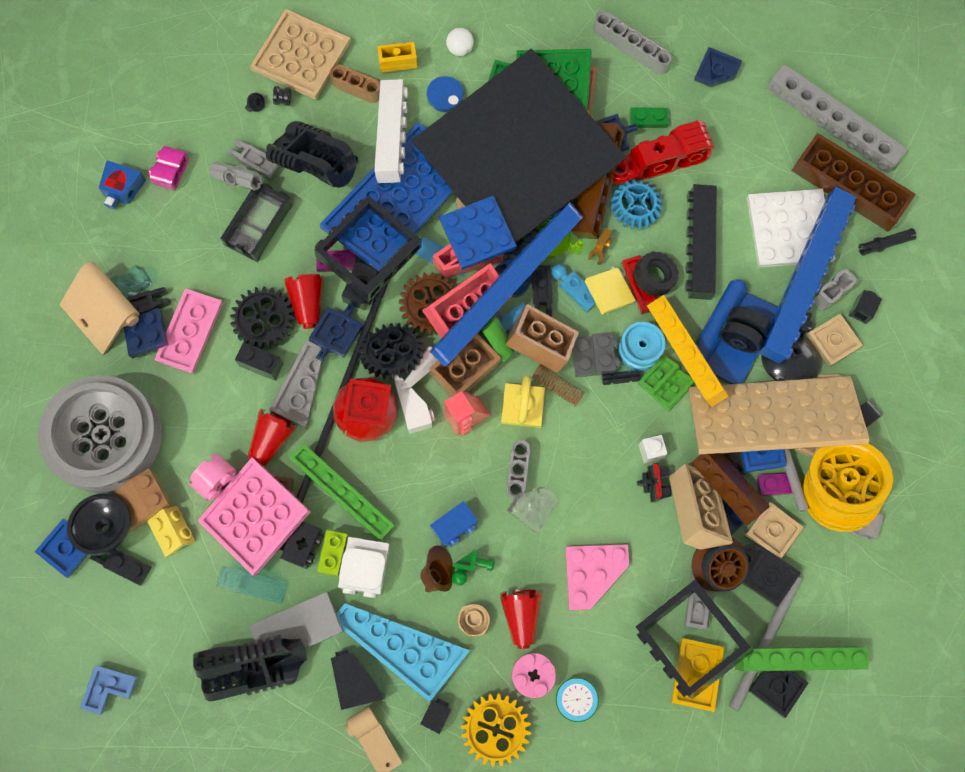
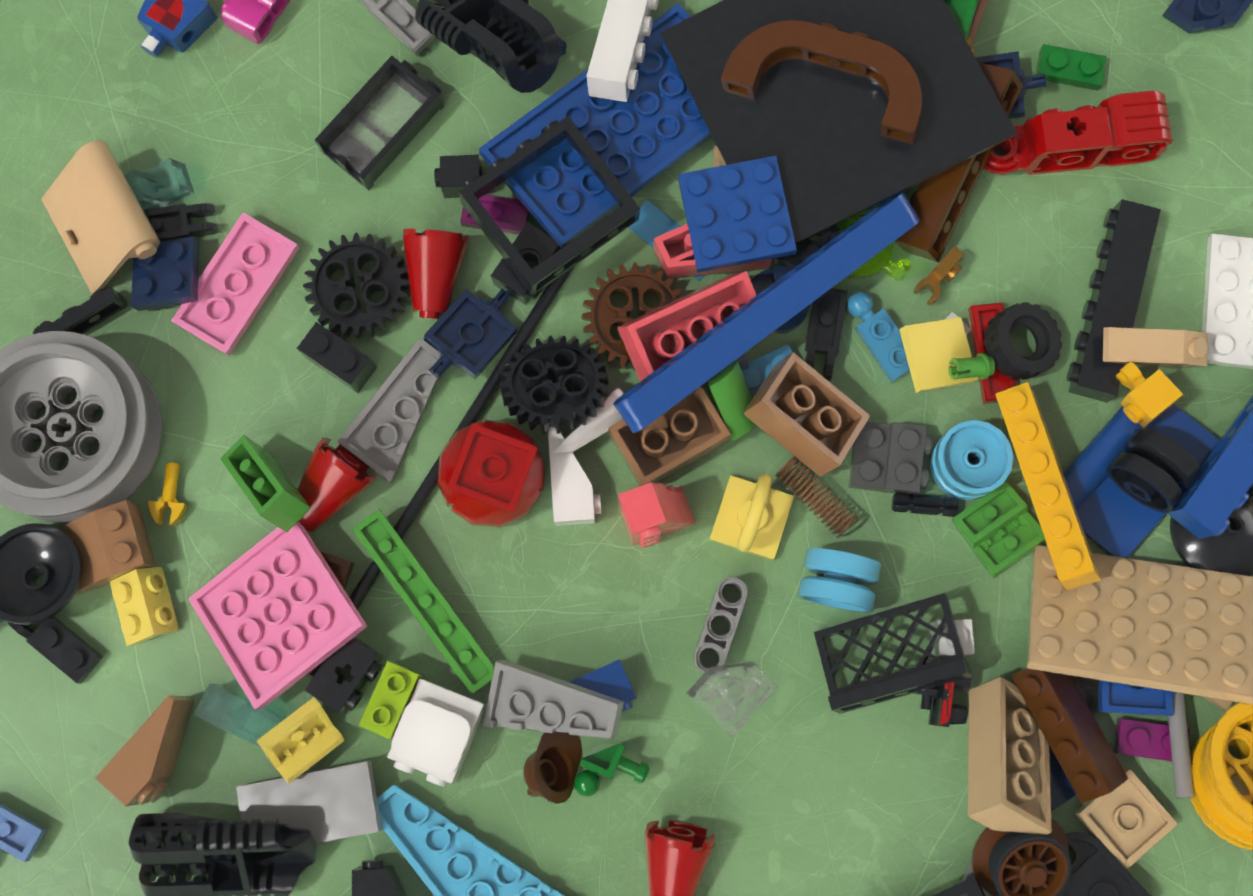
camera: 20 degrees right, 5 degrees up
(108, 361) = (81, 318): none -> black hinge
(173, 464) = (169, 498): none -> yellow bar
(194, 615) = (150, 755): none -> medium nougat slope
(212, 477) = (223, 535): bright pink brick -> none
(232, 441) = (265, 484): none -> bright green brick
(236, 175) = (360, 39): light grey piece -> none
(283, 588) = (300, 740): none -> light yellow bracket
(307, 242) = (455, 172): none -> black brick
(420, 535) = (537, 701): none -> light grey wing
(473, 620) = (595, 858): tan hat -> none
(513, 130) = (837, 50): none -> reddish brown arch
(581, 428) = (840, 578): none -> medium azure wheel
(592, 572) = (807, 821): bright pink plate -> none
(632, 477) = (899, 683): none -> black fence
(635, 292) = (979, 366): none -> bright green pin
(637, 194) = (1026, 236): dark azure gear -> none
(730, 262) = (1155, 347): none -> tan slope
(732, 289) = (1147, 396): none -> yellow brick

